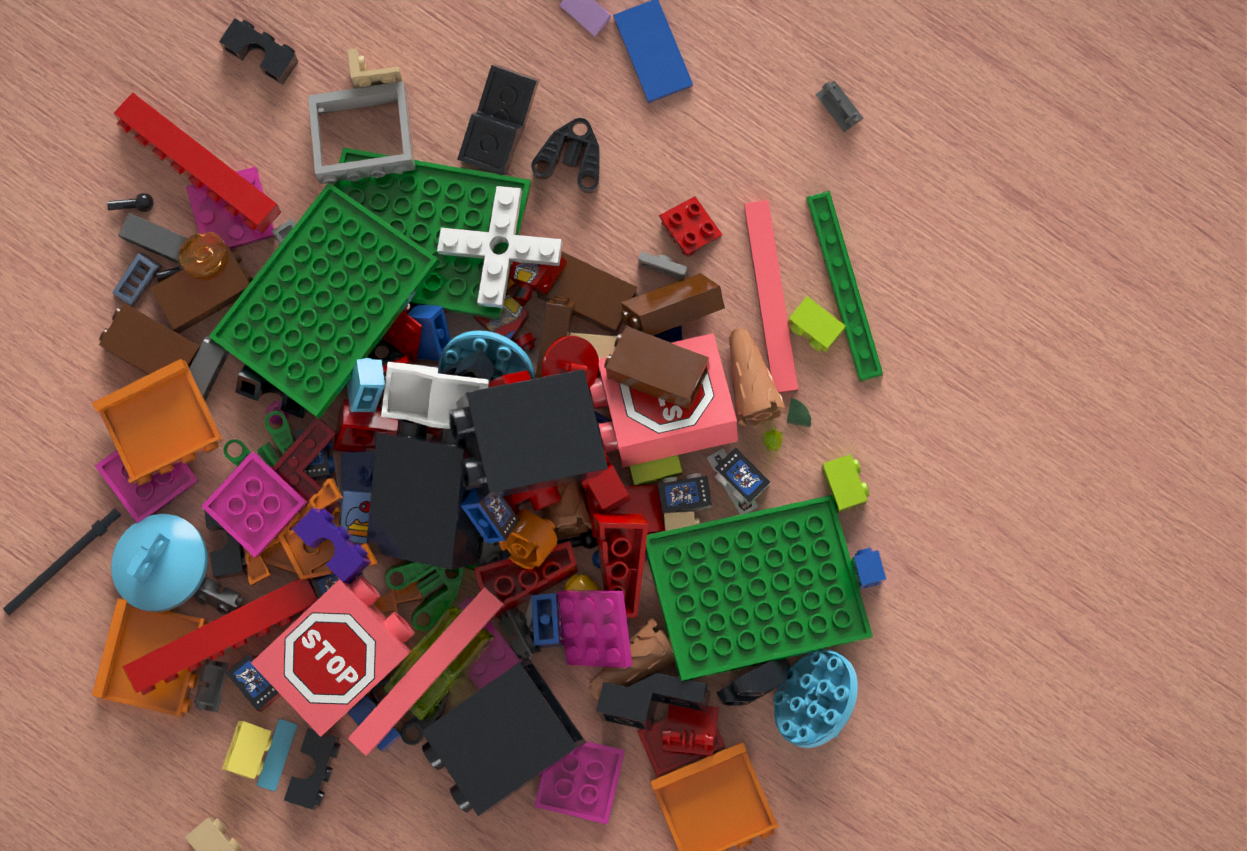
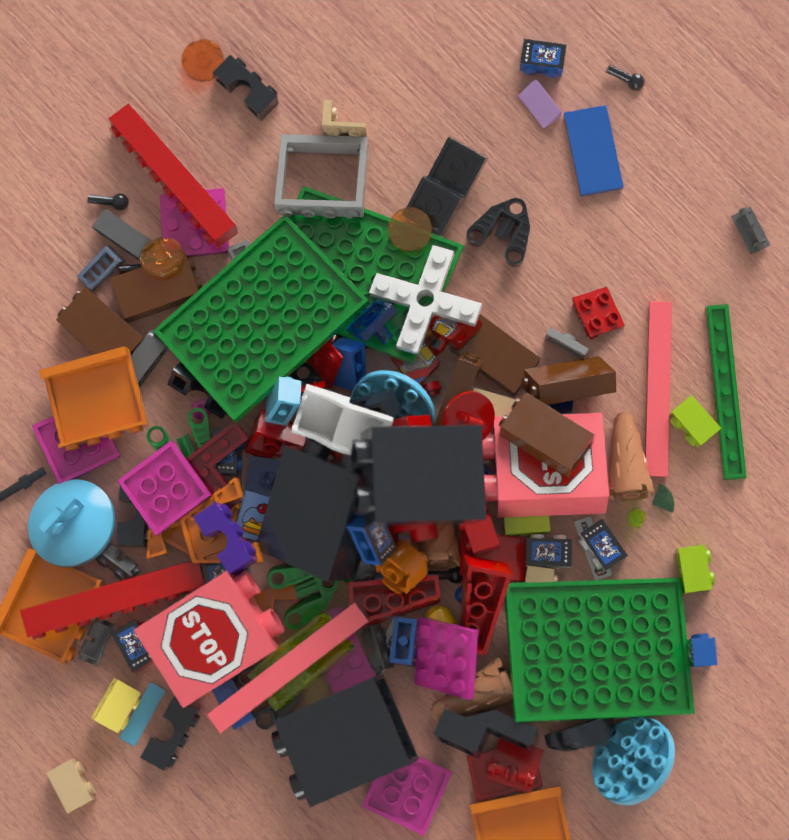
camera: 15 degrees right, 0 degrees up
(204, 29) = (201, 59): none -> clear orange tile
(447, 281) = (373, 322): none -> tile
(468, 173) = (409, 229): none -> clear orange tile

